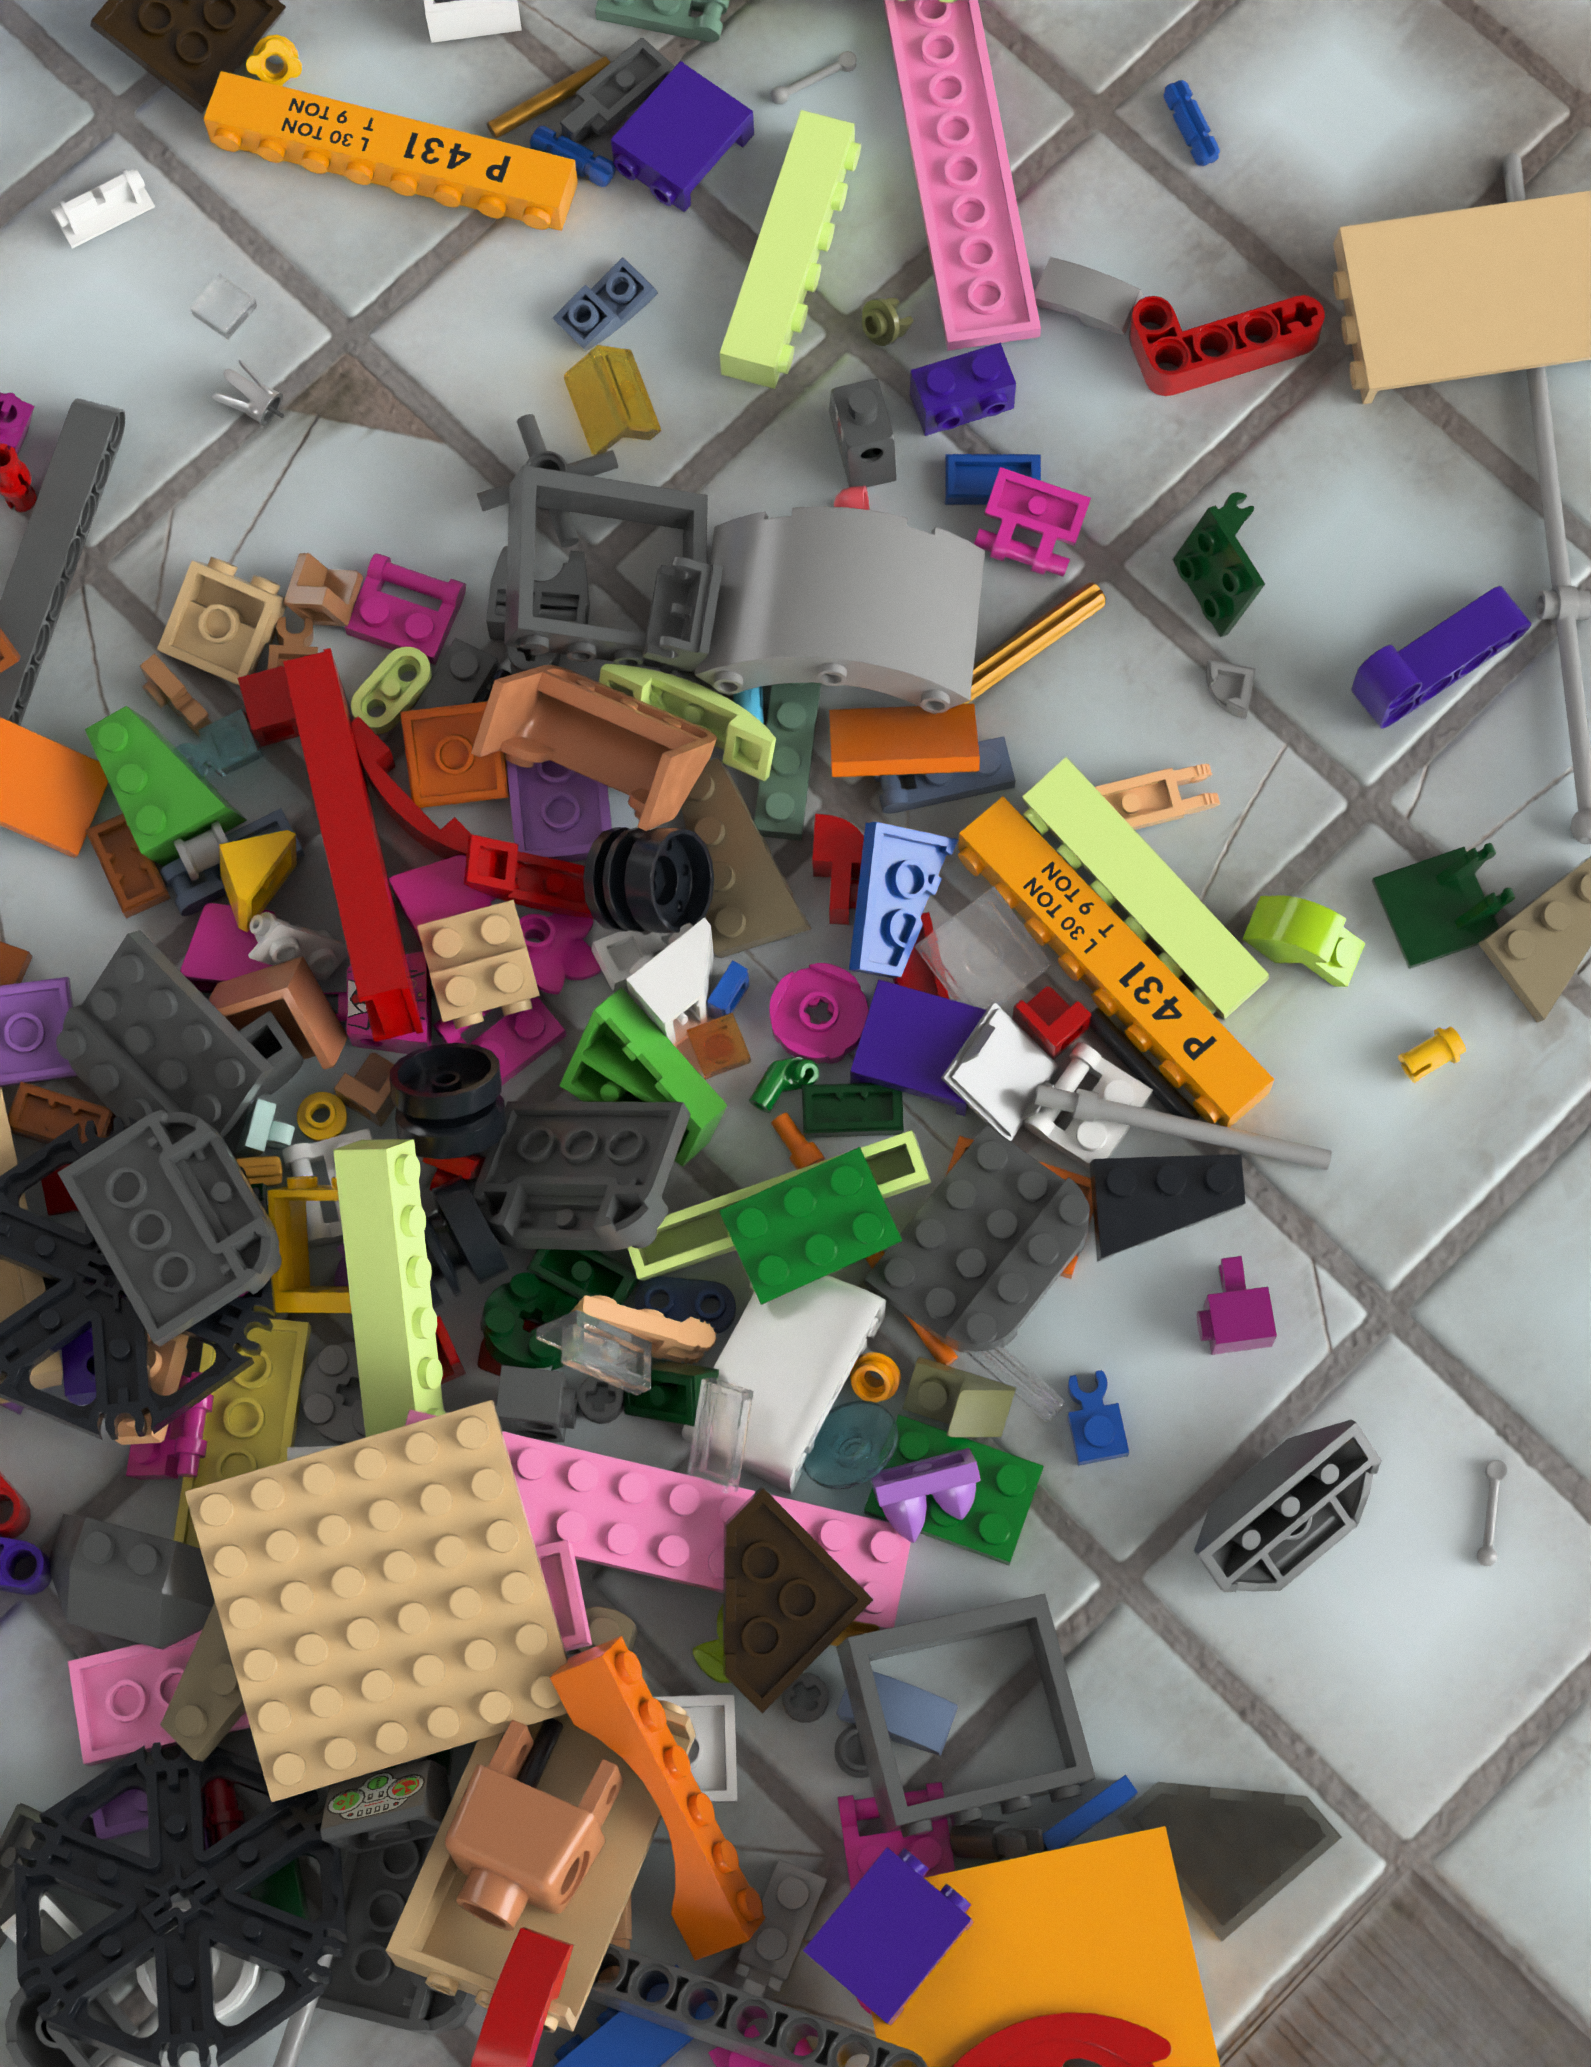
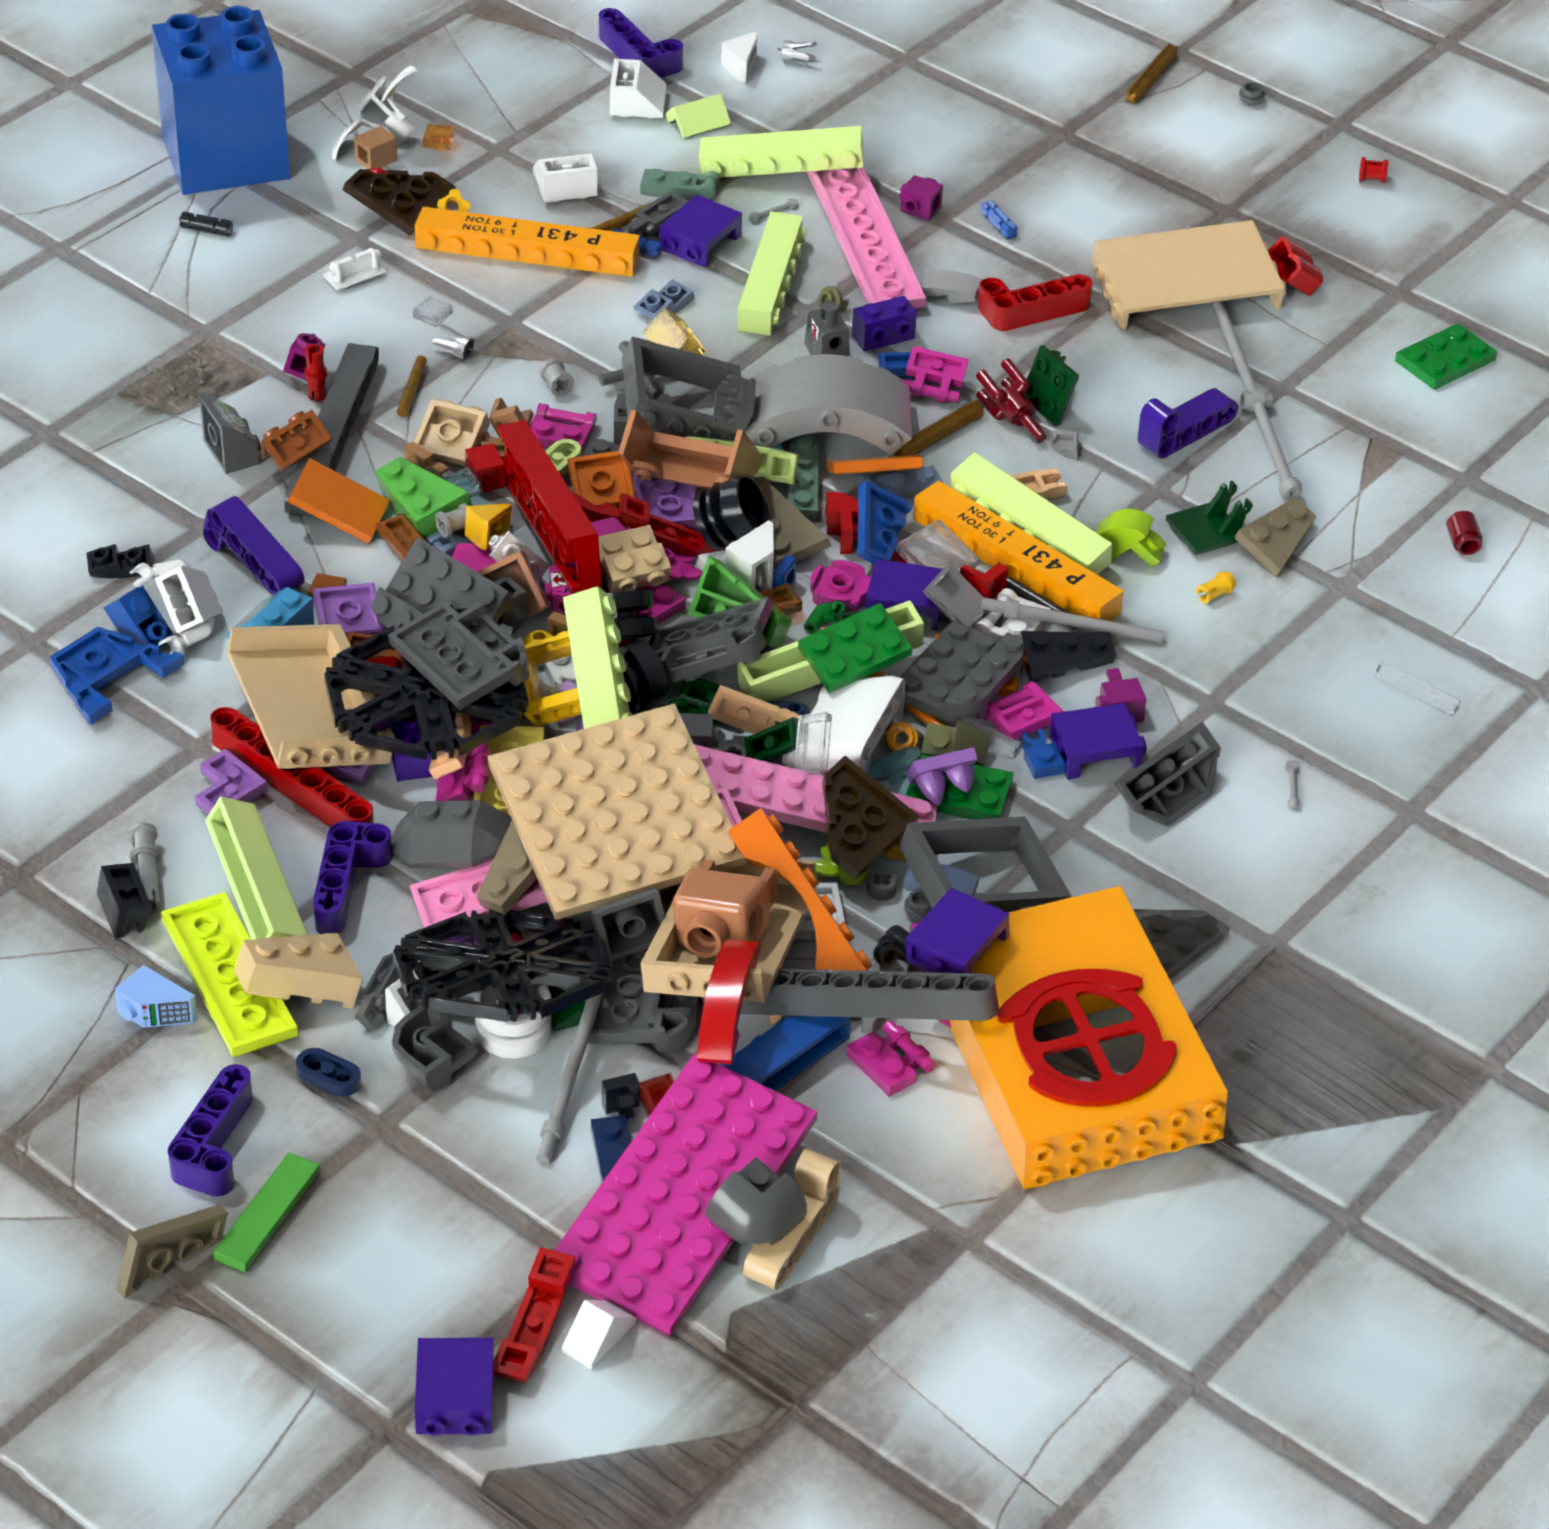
camera: 10 degrees left, 30 degrees down
(173, 489) = (411, 386): none -> pearl gold bar
(408, 489) = (554, 373): none -> light grey bush
(600, 1350) = (729, 714): clear panel -> none
(826, 1852) = (891, 945): none -> black plant
(1064, 67) = (921, 197): none -> magenta brick
(1083, 1338) = (1022, 711): none -> dark pink plate
(1152, 593) = (1010, 400): none -> dark red plant
(1187, 1405) = (1096, 736): none -> dark purple panel

